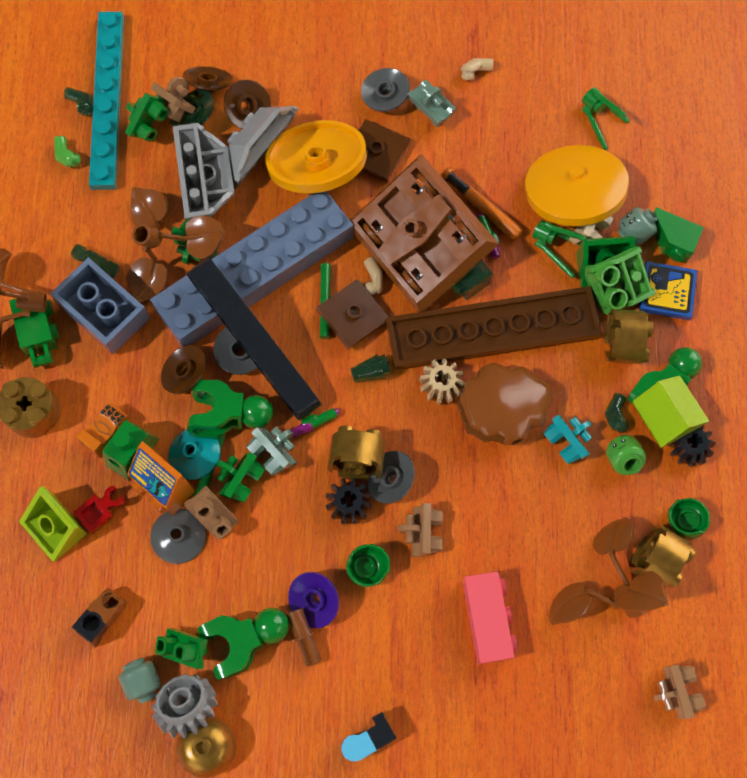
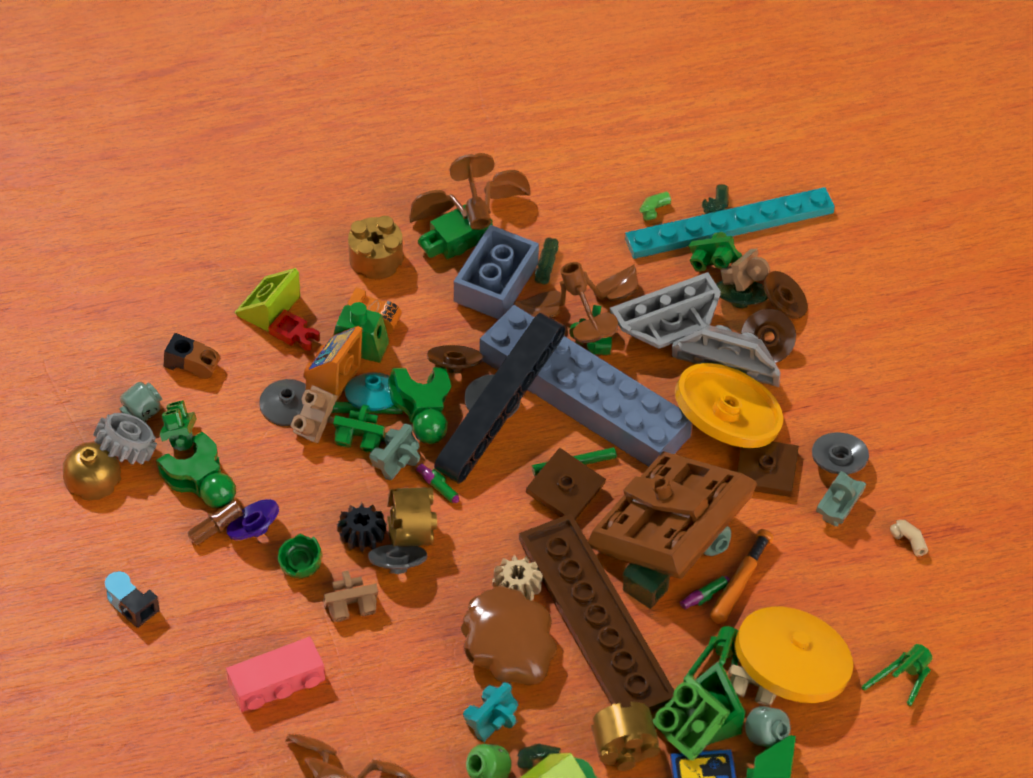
camera: 75 degrees right, 20 degrees down
(371, 369) = (510, 517): clear green cone -> none
(376, 274) = (607, 500): tan arm -> none

